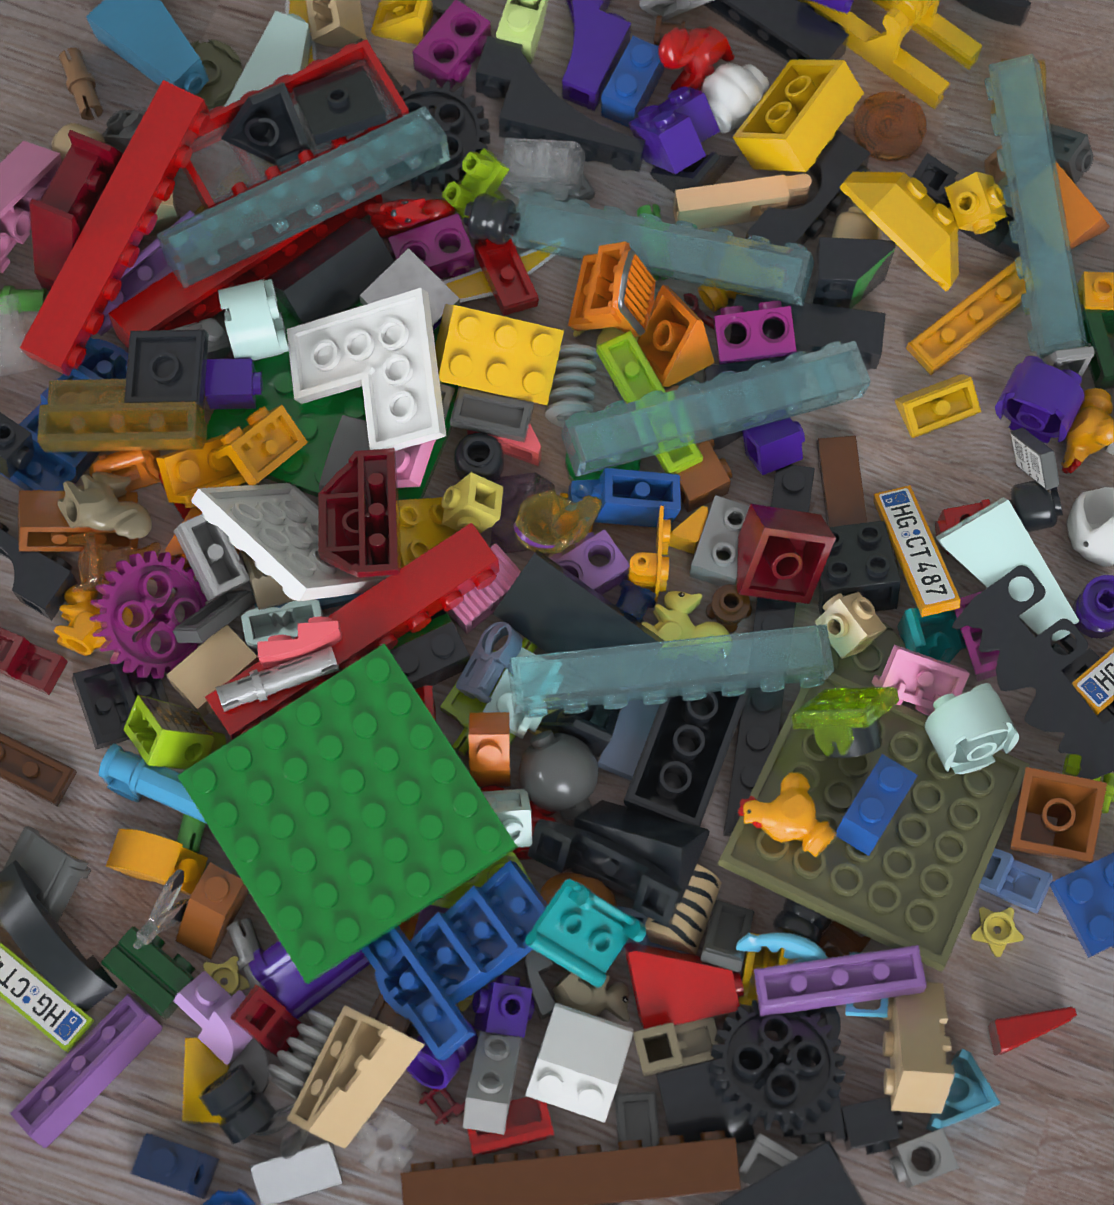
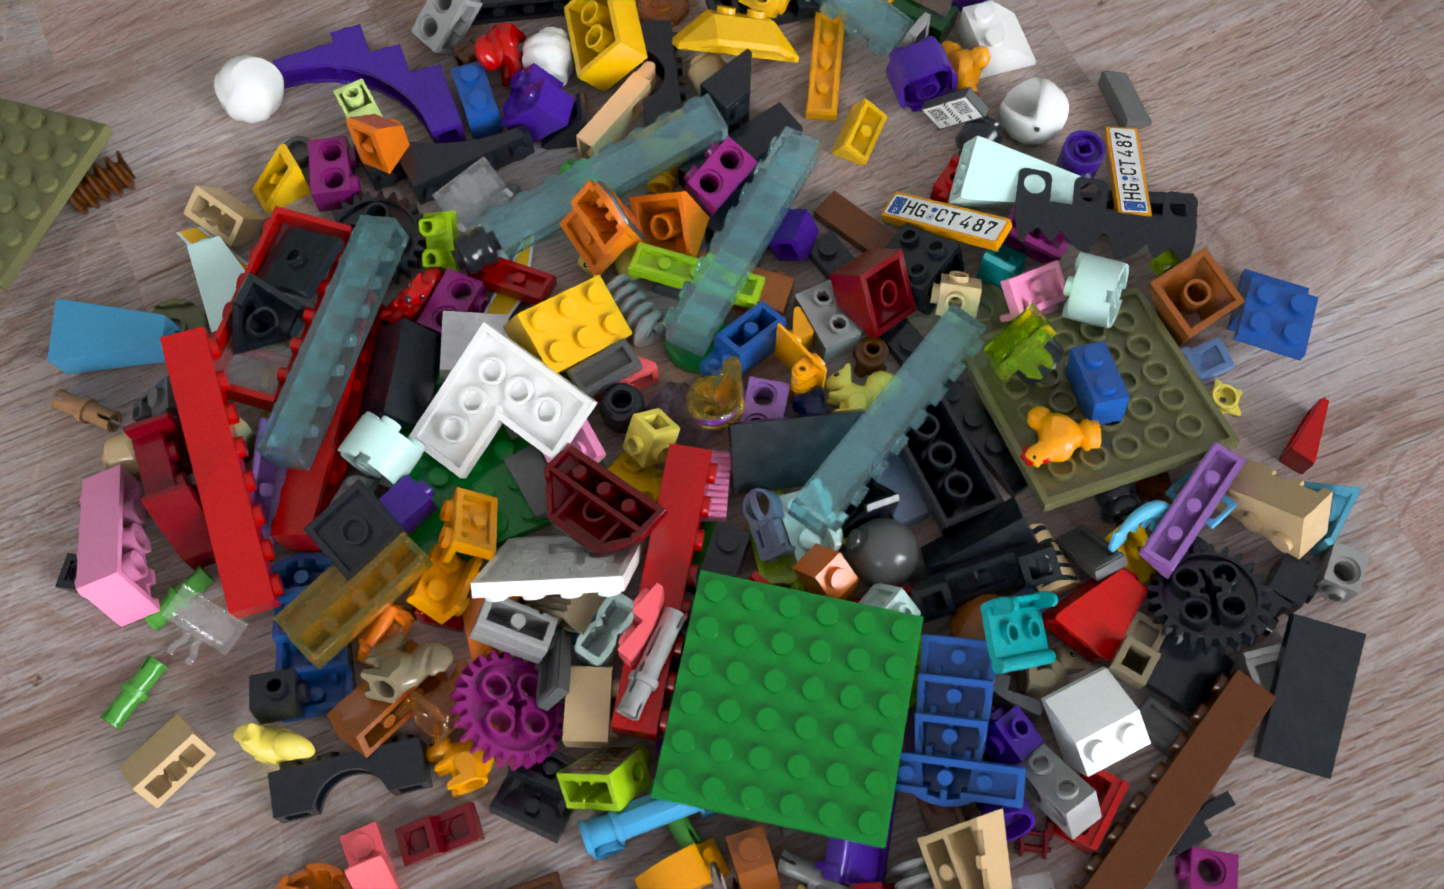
camera: 45 degrees left, 5 degrees down
(505, 51) = (378, 140): none -> orange slope

